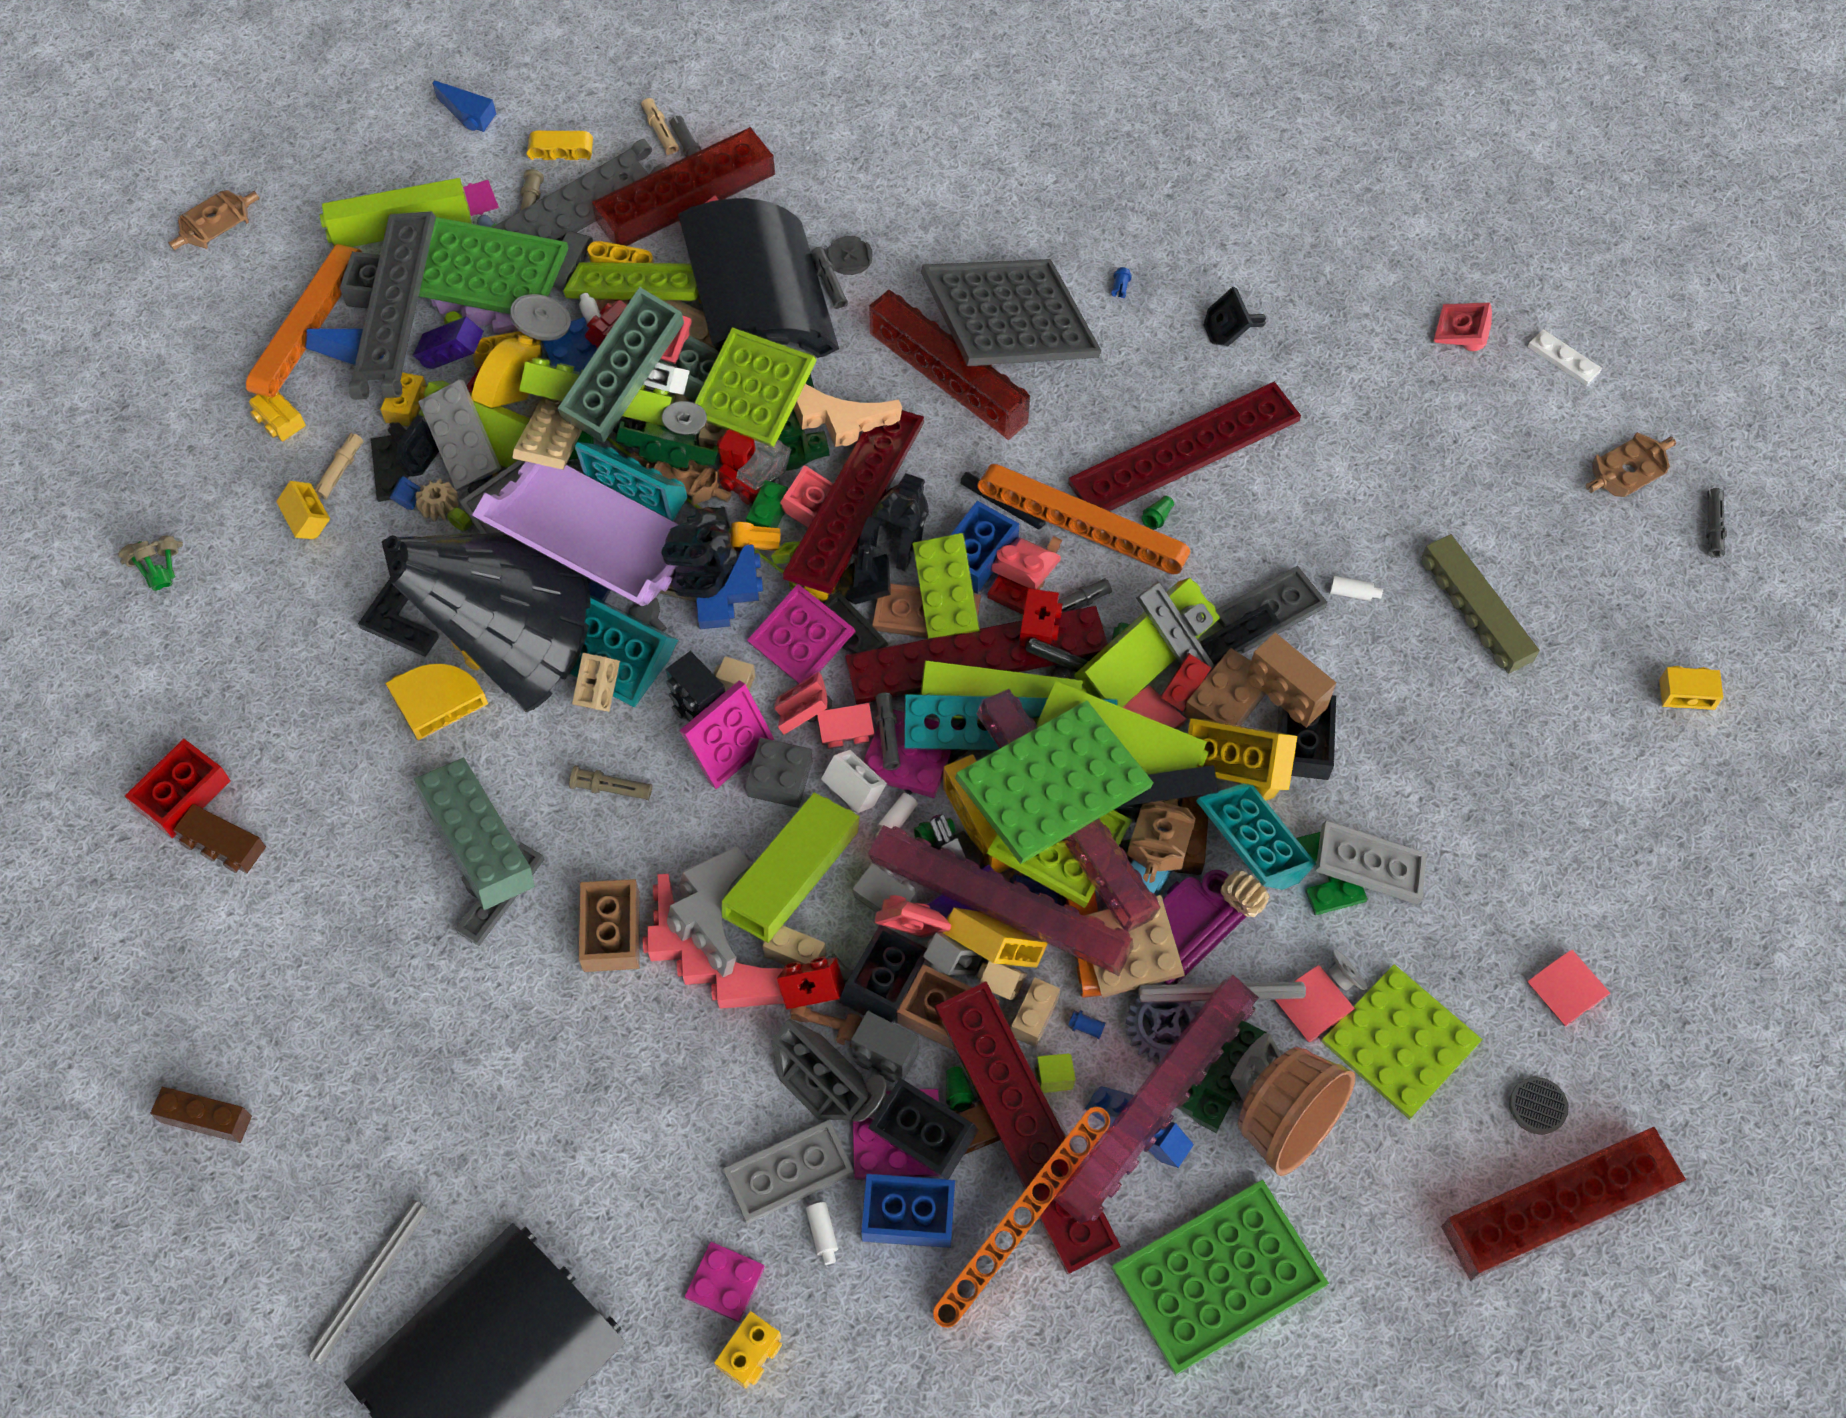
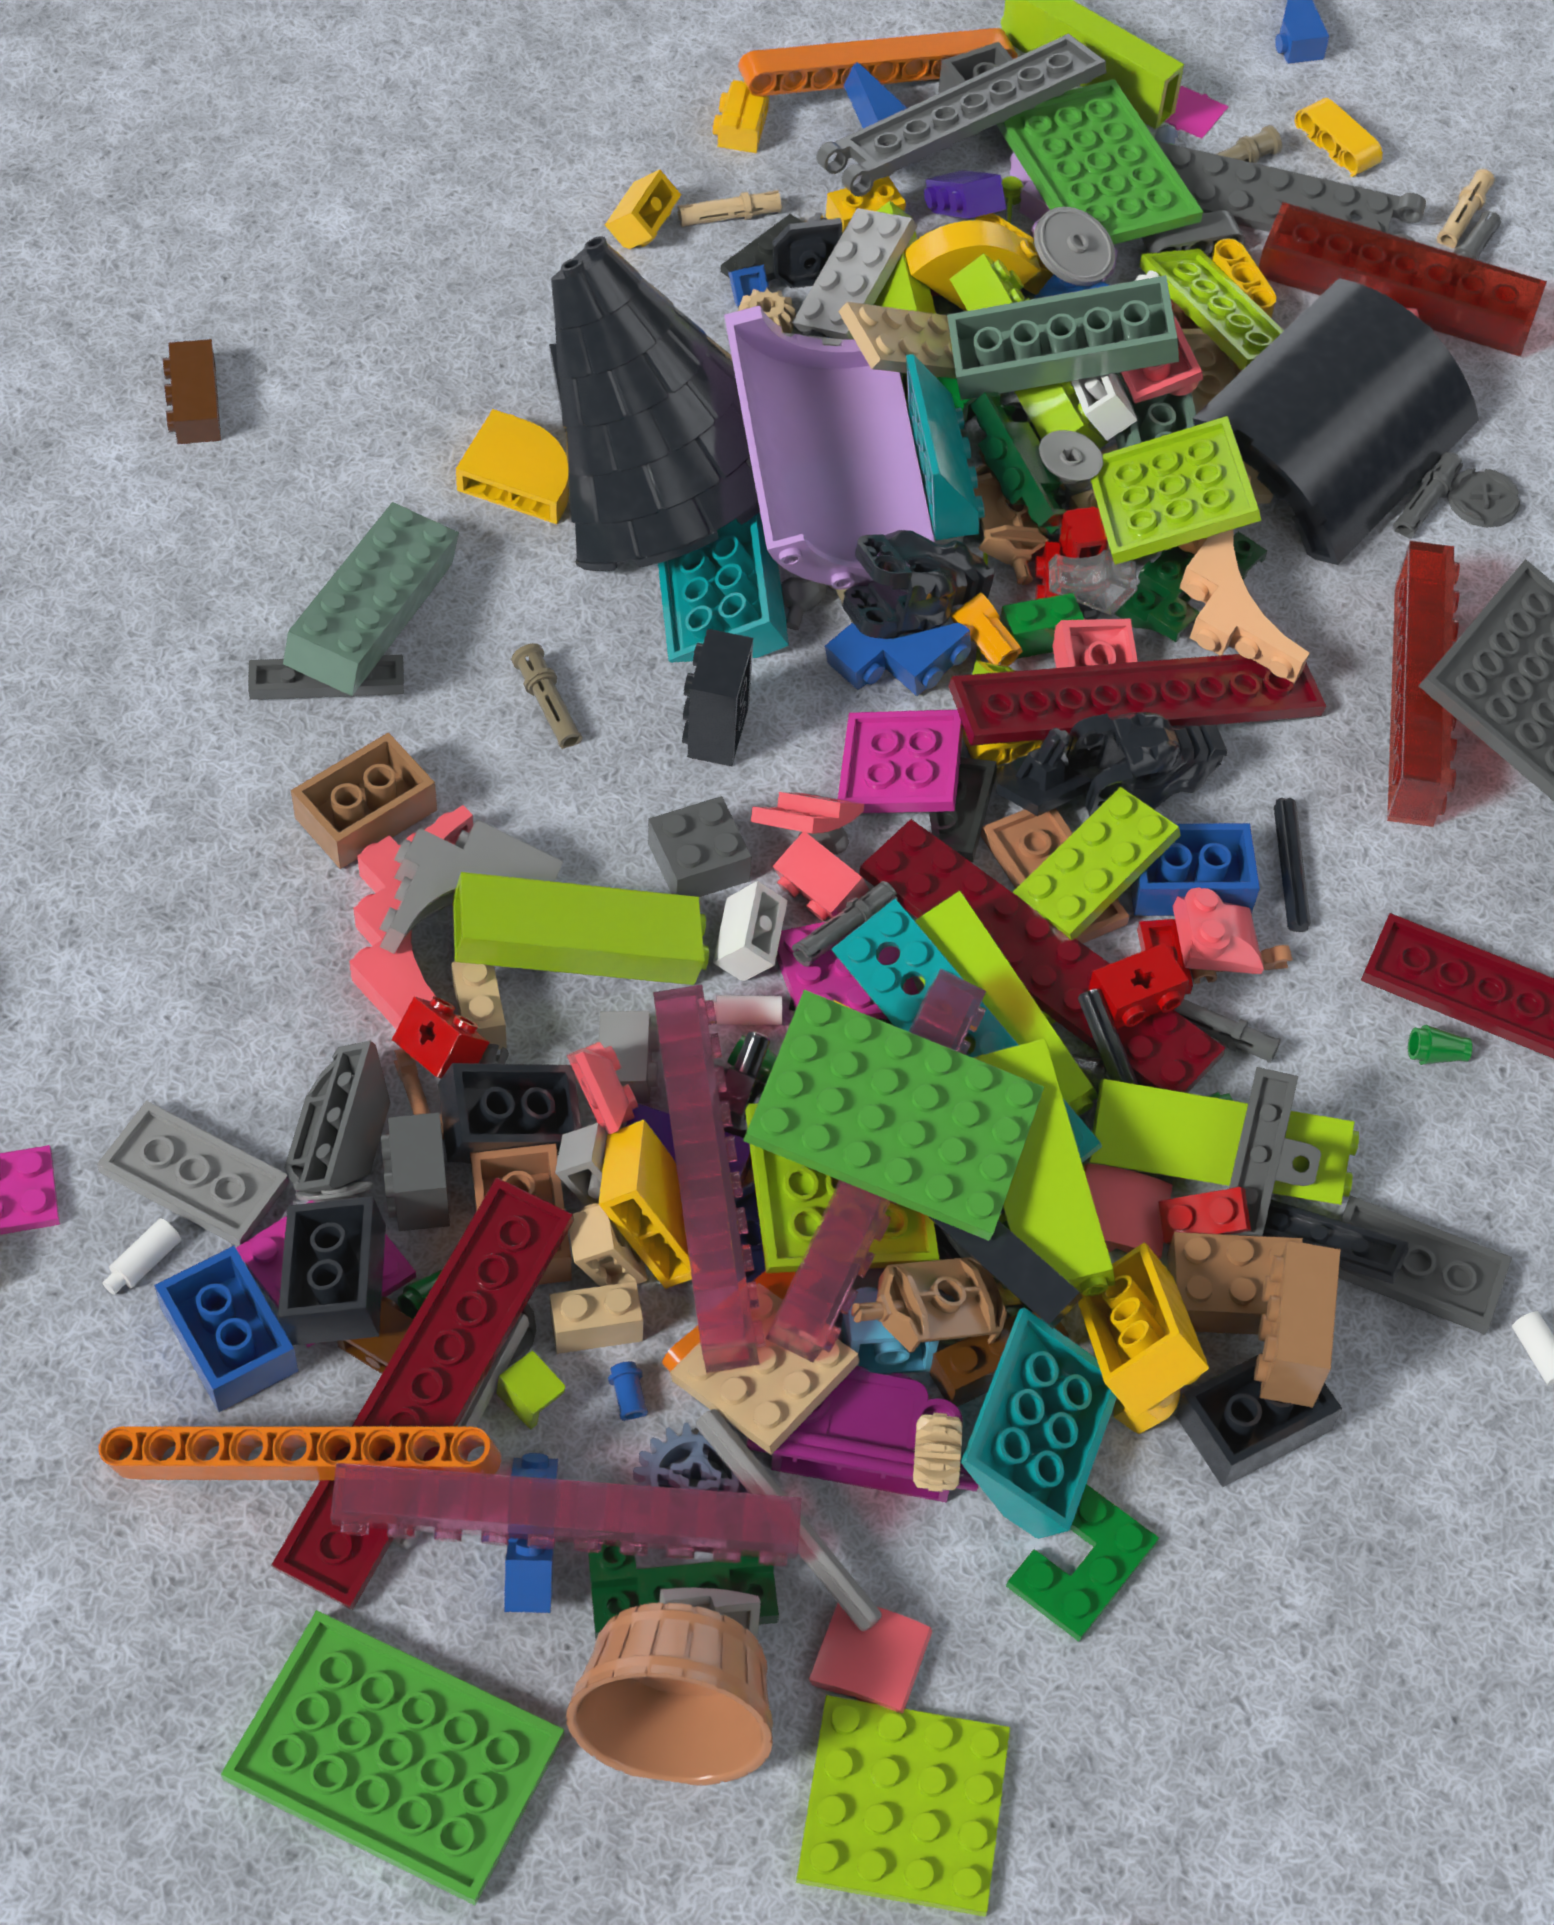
camera: 50 degrees right, 5 degrees down
(157, 576) = (466, 112): plant -> none
(175, 784) = (231, 311): red brick -> none
(596, 682) = (658, 596): tan brick -> none
(726, 734) = (693, 755): dark pink plate -> none
(734, 670) = (789, 730): tan brick -> none
(1084, 519) = (1344, 967): orange beam -> none
(1345, 973) = (946, 1667): light grey piece -> none
(1371, 862) = (1134, 1605): light grey plate -> none

